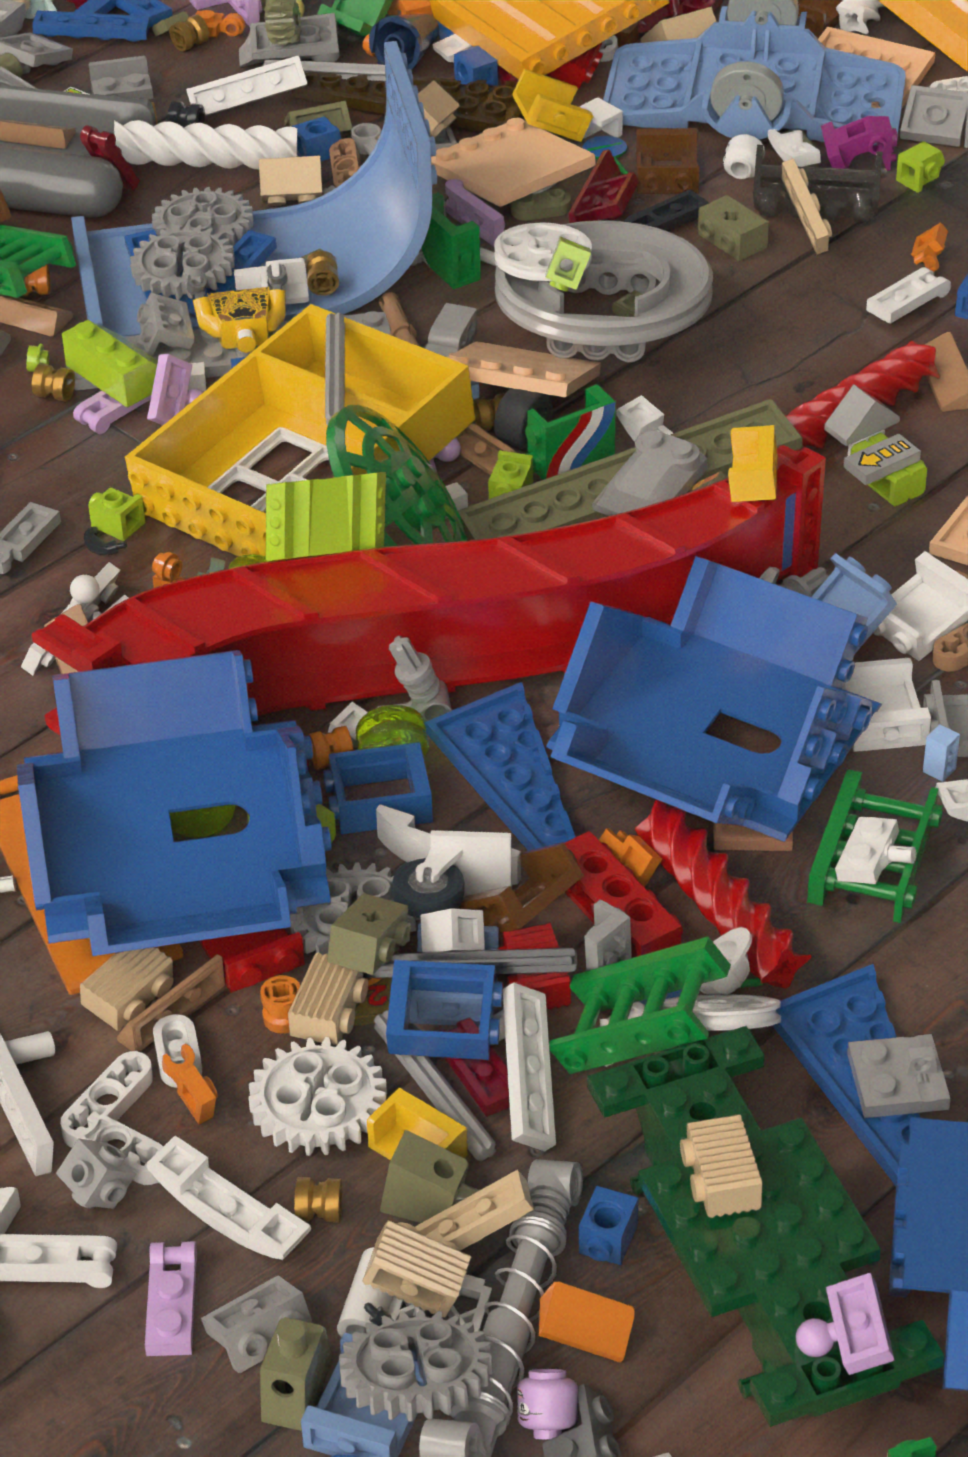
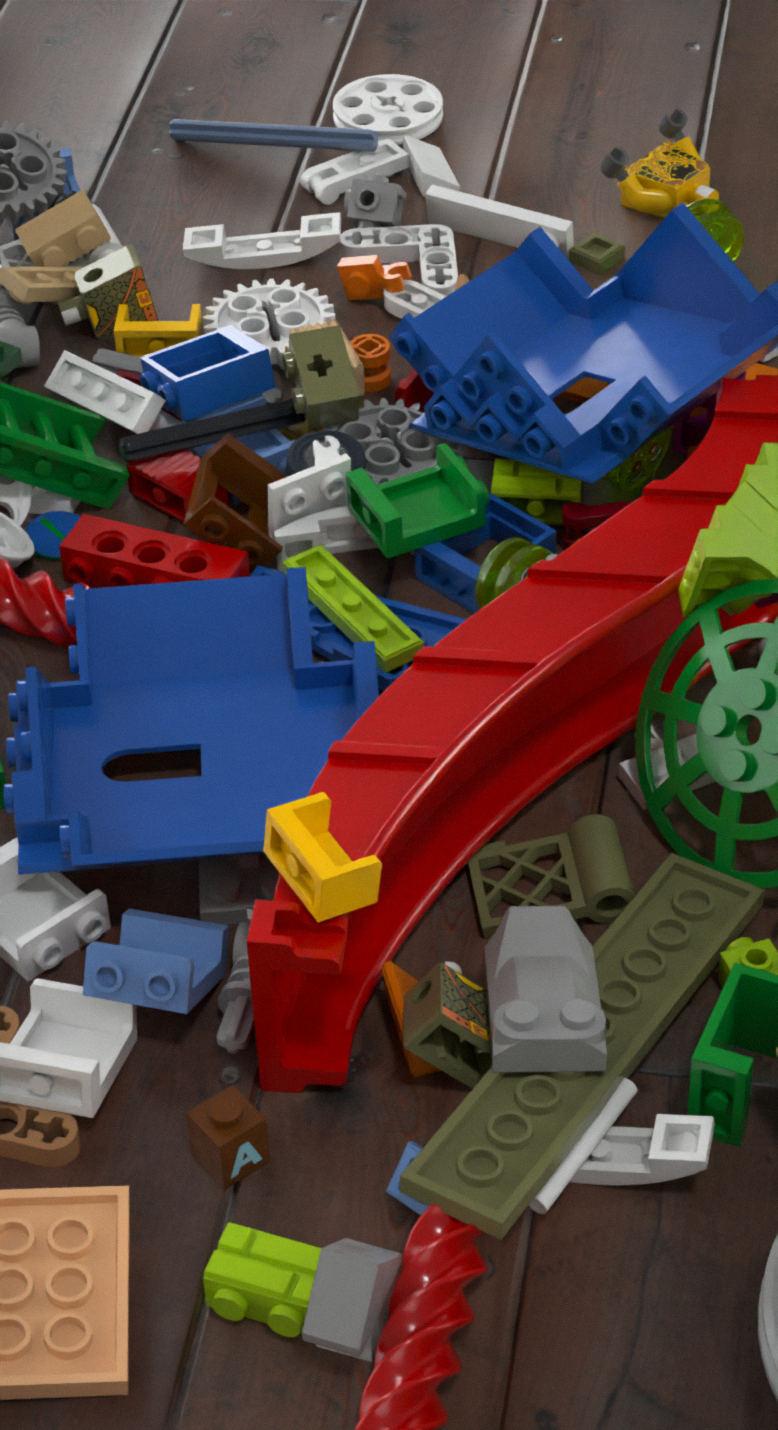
camera: 145 degrees right, 0 degrees up
(84, 1346) = (274, 135): none -> sand blue axle
(171, 1300) = (247, 193): lavender plate -> none
(250, 1321) = (168, 198): light grey bracket -> none
(296, 1356) = (102, 163): olive torso -> none
(319, 1199) = (195, 269): pearl gold wheel -> none
(404, 805) = (420, 505): none -> green panel
(452, 930) = (266, 434): white panel -> none
(515, 781) = (355, 608): none -> lime tile
(609, 938) = (113, 487): light grey bracket -> none
(862, 530) = (228, 1137): none -> reddish brown brick
(882, 459) = (267, 1229): light grey tile -> none

